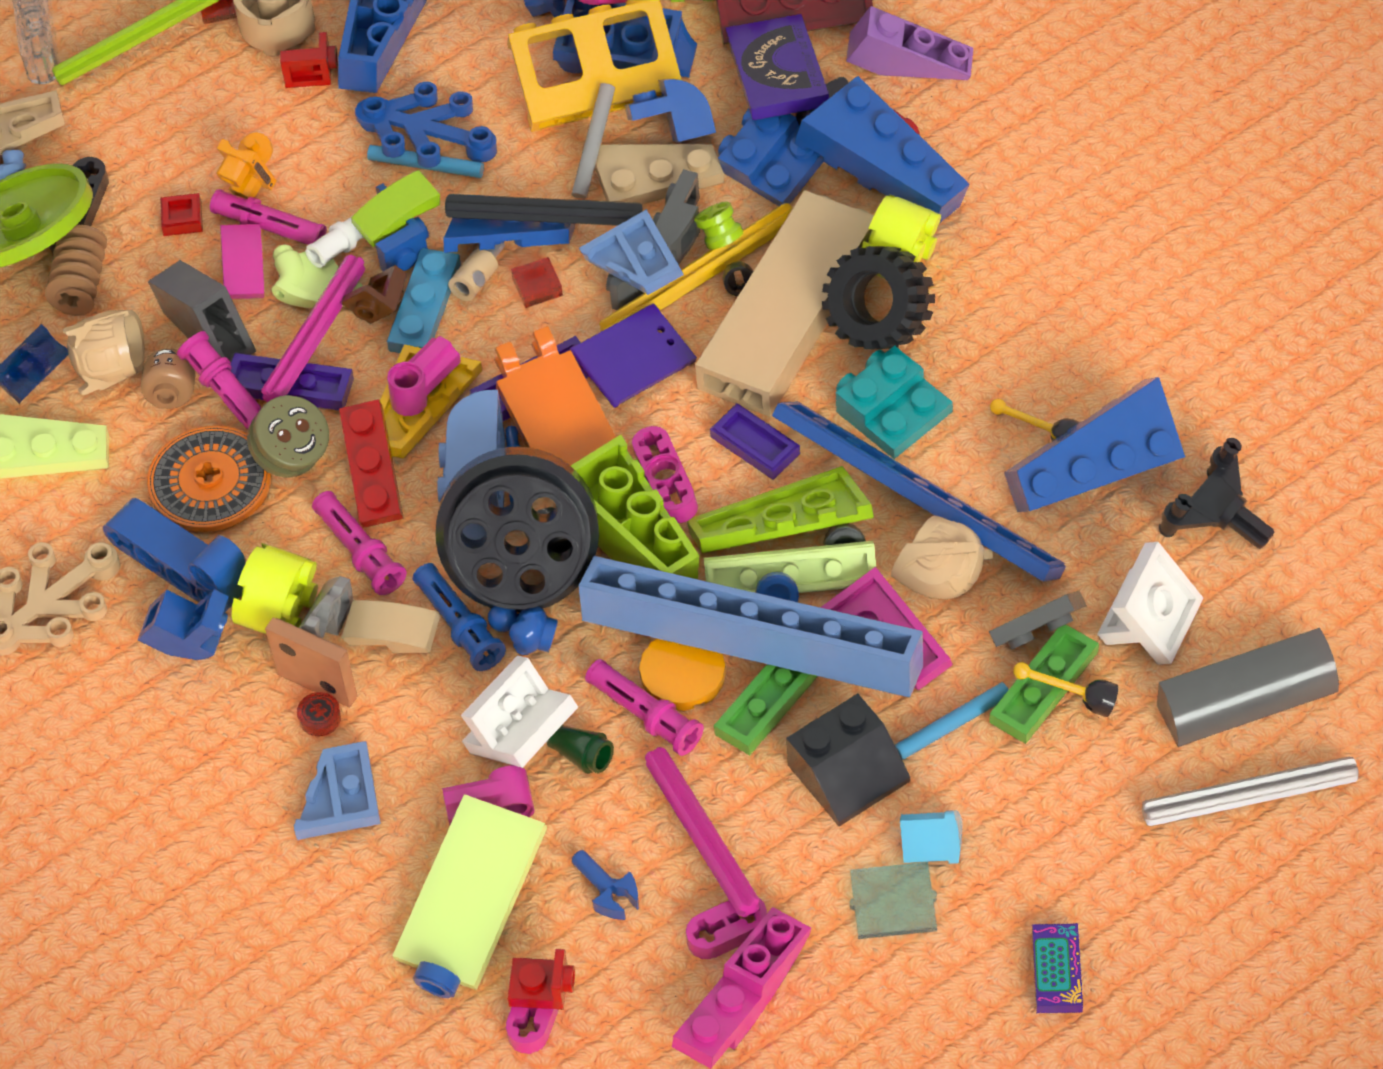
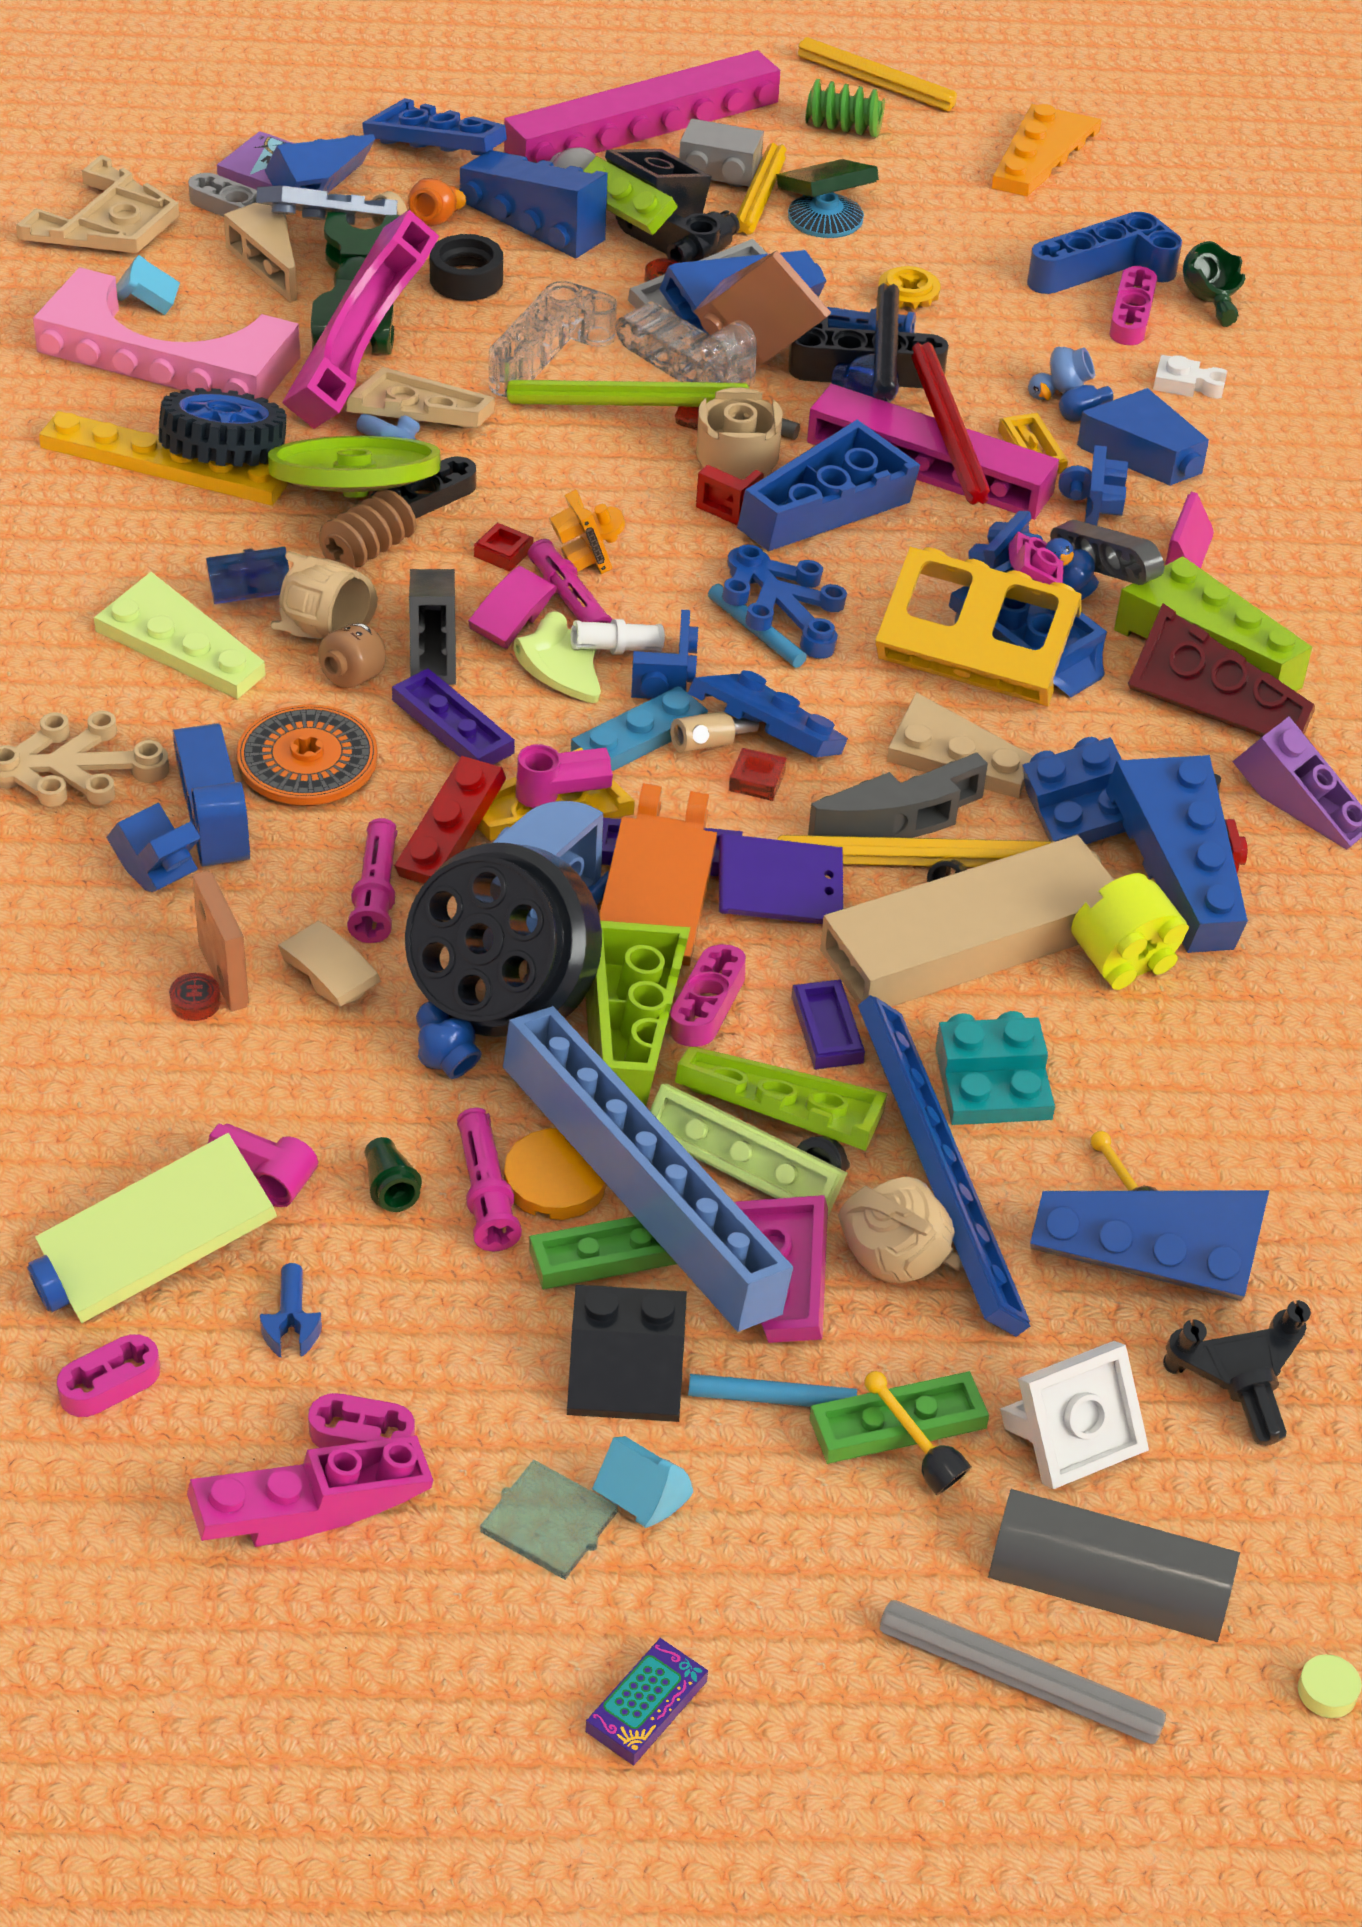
camera: 30 degrees right, 10 degrees down
(216, 373) = (389, 669): dark pink pin -> none
(274, 586) = (254, 864): neon yellow brick -> none
(288, 436) = (400, 755): olive head -> none
(313, 328) = (510, 688): dark pink axle -> none
(329, 608) = (277, 912): light grey slope -> none
(340, 794) = (140, 1071): medium blue wing -> none
(378, 297) = (587, 704): reddish brown bracket -> none
(394, 206) = (682, 630): lime slope -> none
(433, 584) = (394, 1008): blue pin -> none
(515, 715) = (349, 1095): white bracket -> none
(540, 209) = (812, 711): black axle -> none
(541, 982) = (130, 1347): red bracket -> none
(593, 141) = (919, 687): light grey bar -> none
(634, 254) = (856, 788): medium blue wing -> none
(684, 105) = (1030, 705): brick -> none
(702, 832) = (420, 1325): dark pink axle -> none
(718, 225) = (967, 819): lime wheel -> none
(777, 66) = (1149, 718): dark purple tile -> none
(779, 586) = (716, 1158): blue tile -> none
(848, 303) = (1079, 980): black tyre -> none
(1053, 614) = (952, 1349): dark grey wing -> none

